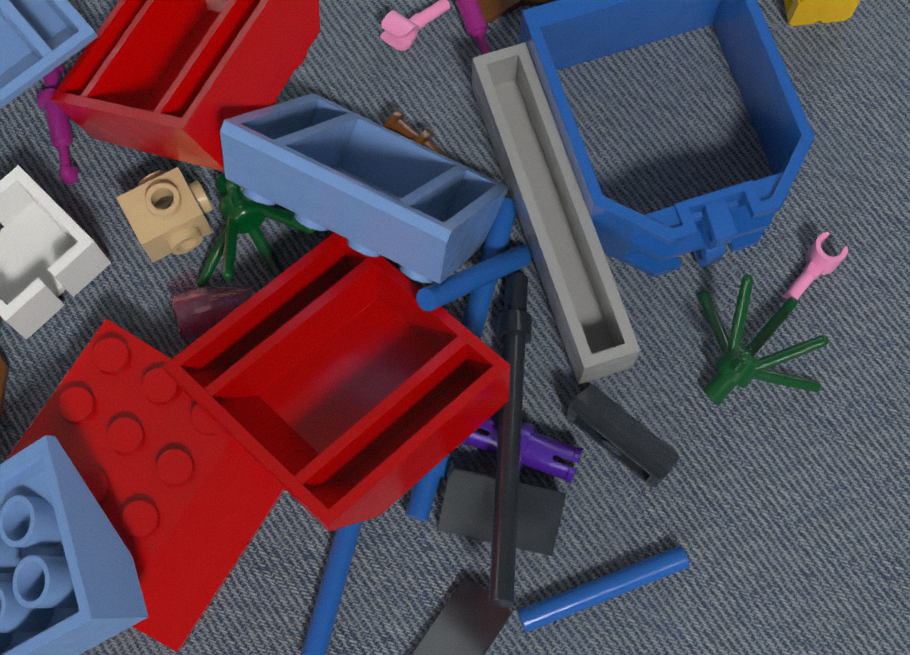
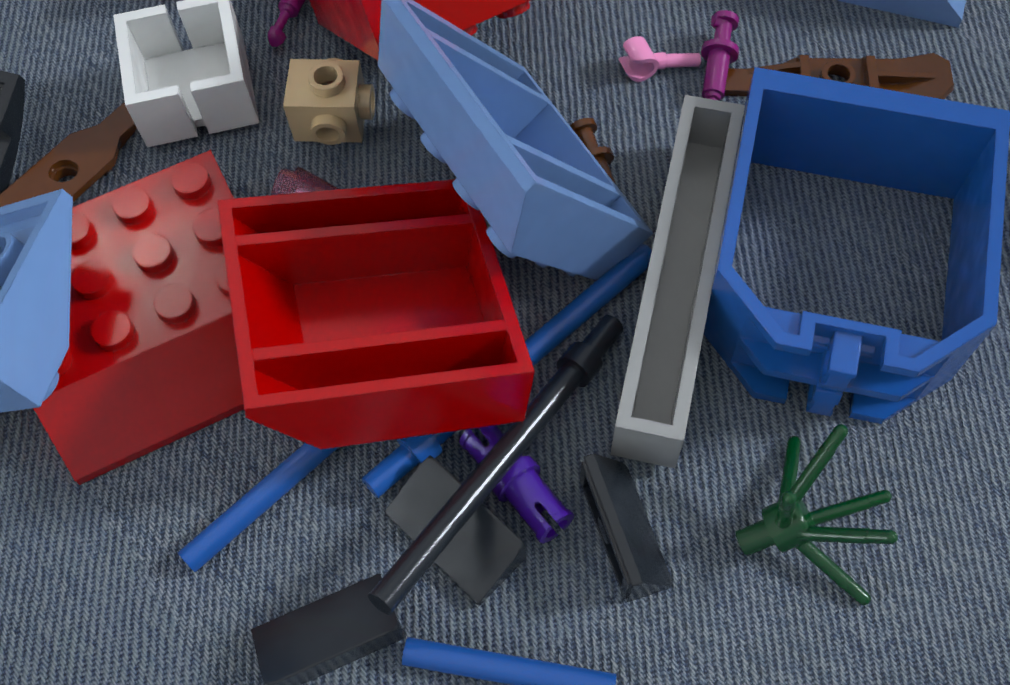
camera: 35 degrees right, 10 degrees down
(244, 217) = (392, 134): dark green plant -> none
(473, 278) = (560, 287): blue bar -> none
(817, 264) = (936, 475): bright pink hand -> none

